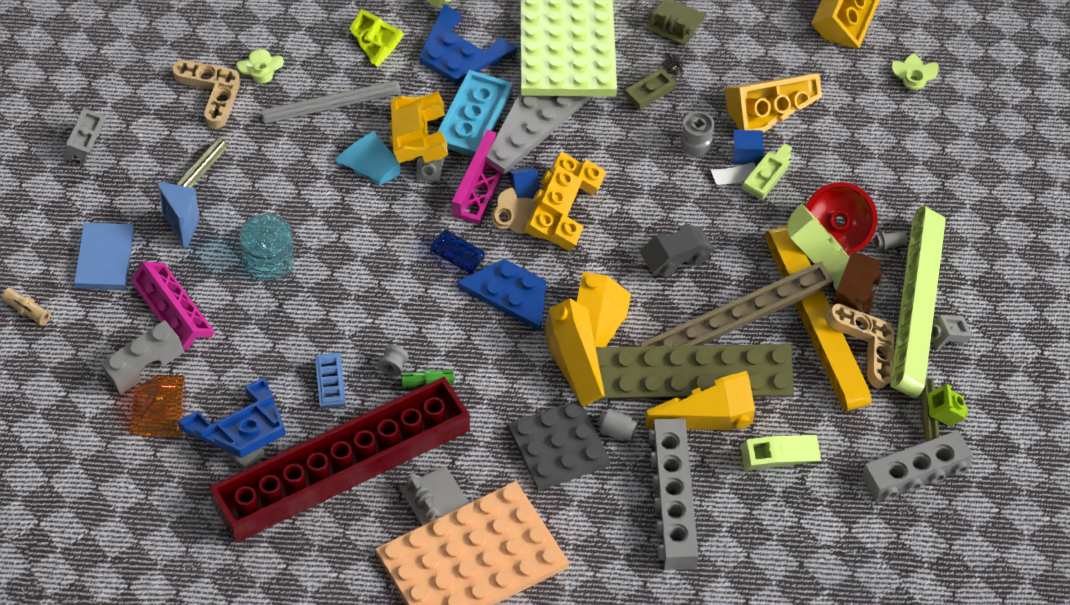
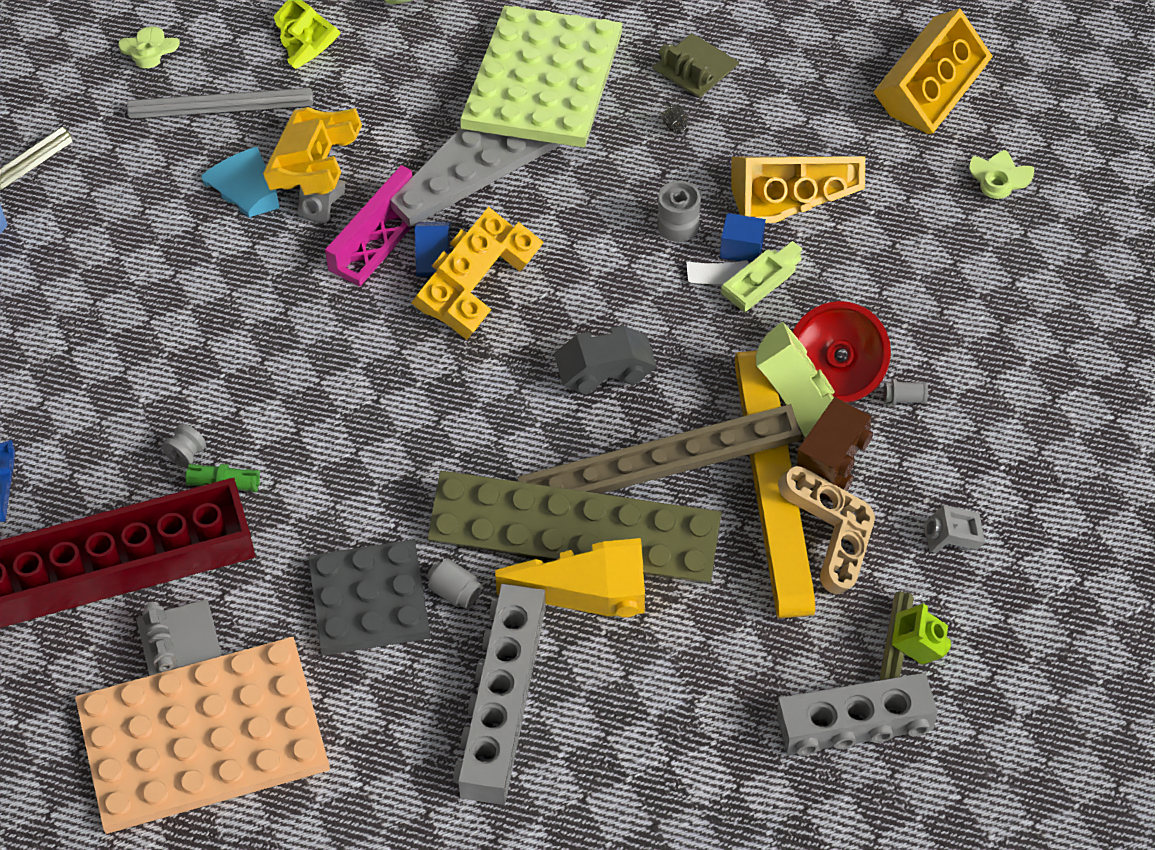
camera: 15 degrees right, 0 degrees up
(192, 76) = (85, 62): tan beam -> none
(267, 247) = (70, 272): clear light blue wheel -> none
(326, 365) = (96, 438): medium blue slope -> none
(454, 56) = (397, 70): blue wing -> none
(457, 251) = (317, 316): clear blue plate -> none
(474, 111) = (398, 137): medium azure plate -> none
(509, 290) = (370, 379): blue wing -> none
(516, 209) = (409, 272): tan plate -> none
(574, 349) = (424, 469): yellow wedge -> none
(606, 305) = (473, 428): yellow wedge -> none
(650, 89) = (636, 145): olive plate -> none
(779, 451) = (667, 659): yellowish green slope -> none
(918, 302) = (918, 485): yellowish green beam -> none

